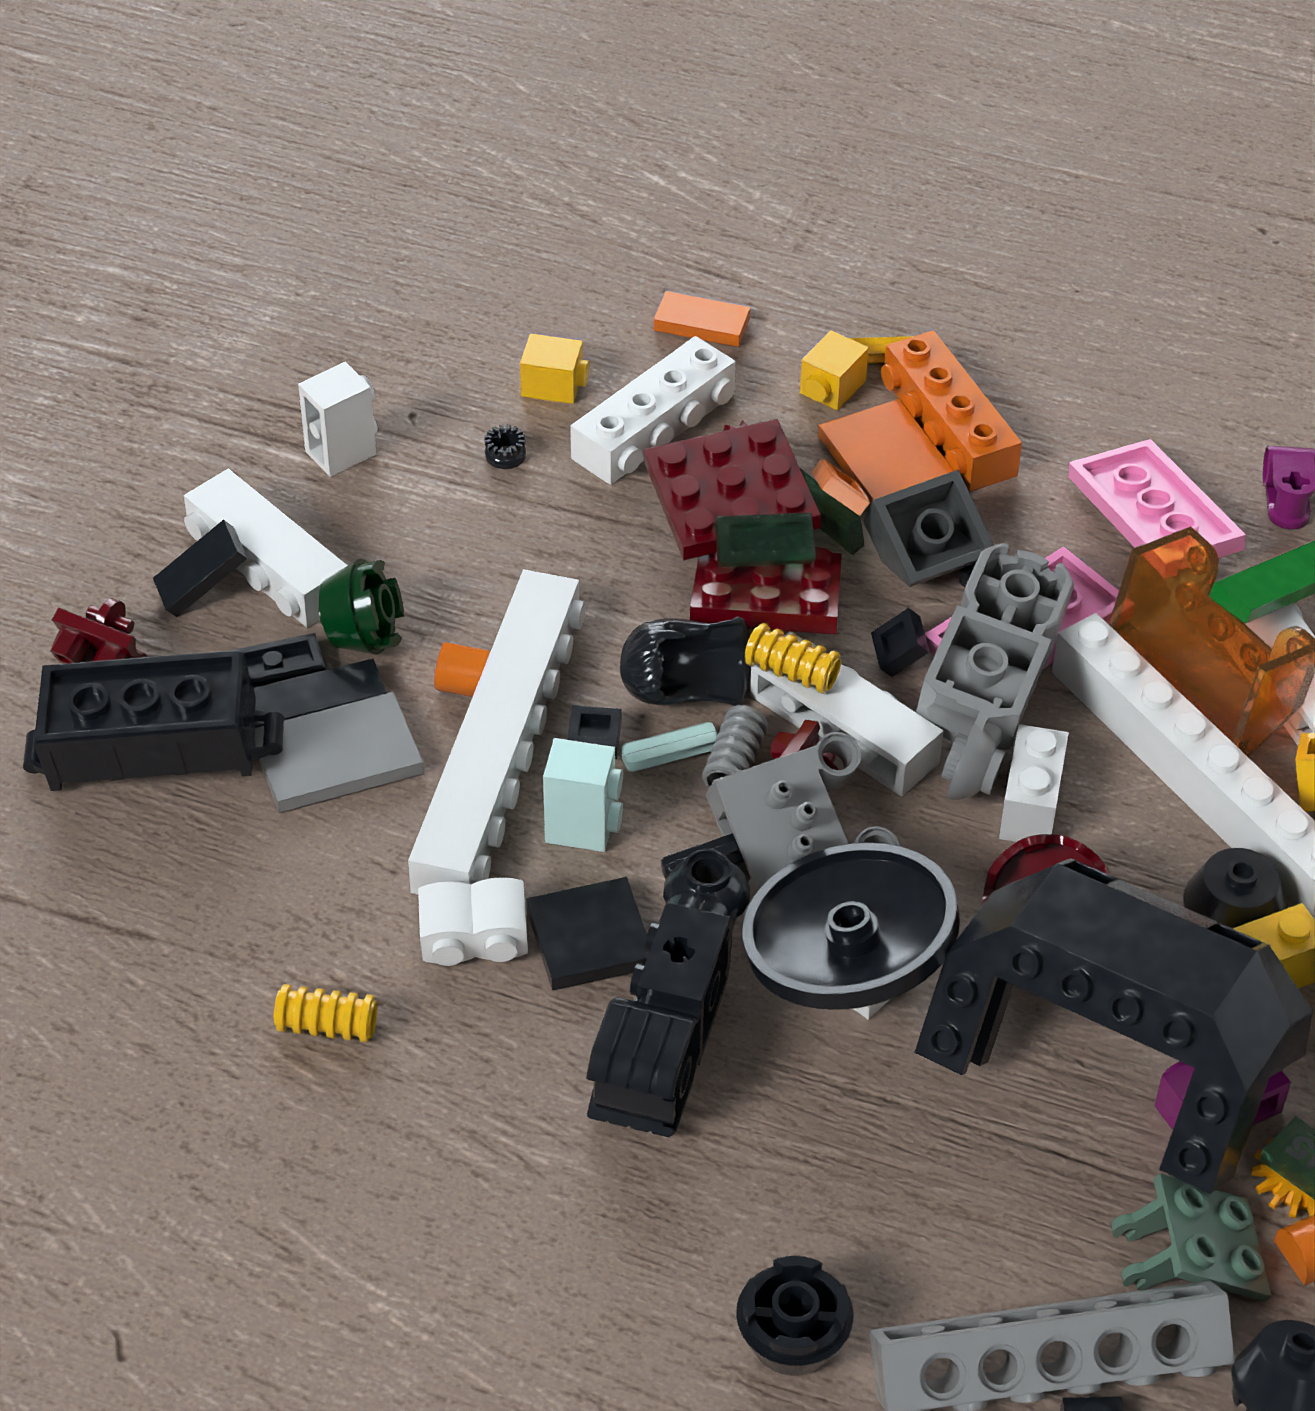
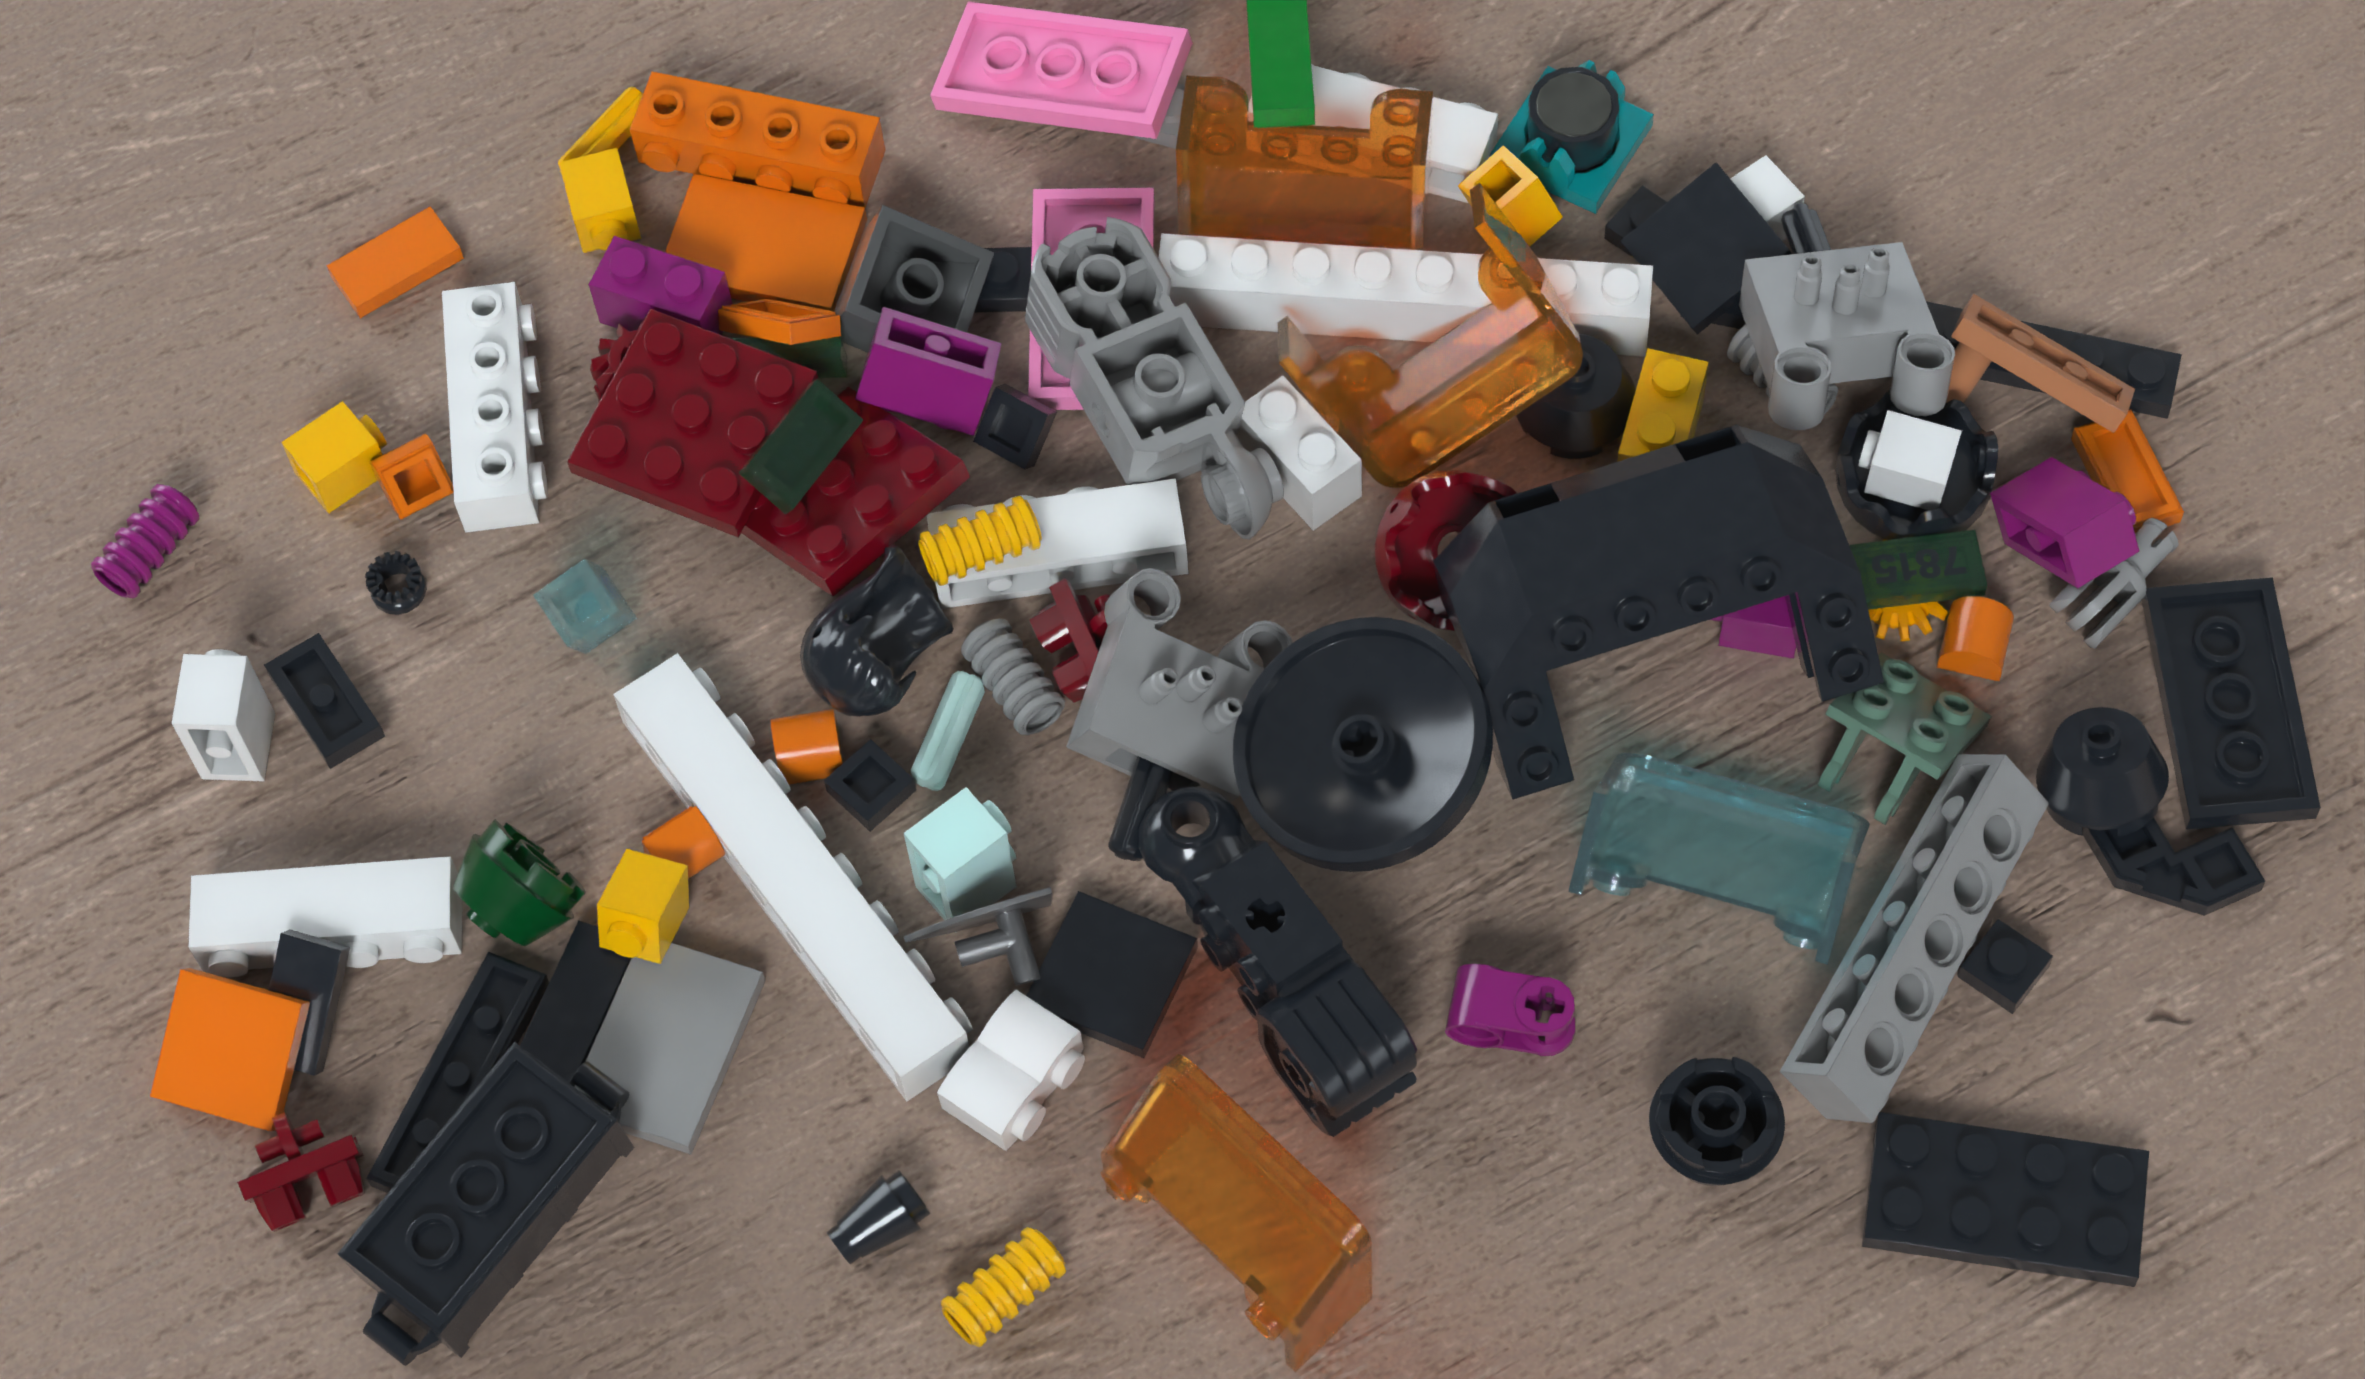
camera: 45 degrees left, 15 degrees up
(144, 557) = (229, 1049): none -> orange tile
(316, 922) = (879, 1218): none -> black cone
(399, 463) = (324, 700): none -> black plate
(403, 672) = (643, 906): none -> yellow brick
(419, 329) = (145, 541): none -> magenta piece
(465, 1088) = (1245, 1203): none -> clear orange windscreen
(559, 843) = (1008, 939): none -> flat silver shield
(568, 524) = (584, 606): none -> clear light blue brick
(571, 402) = (412, 476): none -> orange brick
(589, 684) = (807, 745): none -> orange brick
(768, 1157) = (1502, 1009): none -> magenta piece
(804, 423) = (642, 278): none -> magenta brick
(882, 568) = (928, 371): none -> magenta brick
(1001, 1178) = (1724, 844): none -> clear light blue windscreen
(1110, 809) = (1460, 384): none -> clear orange windscreen

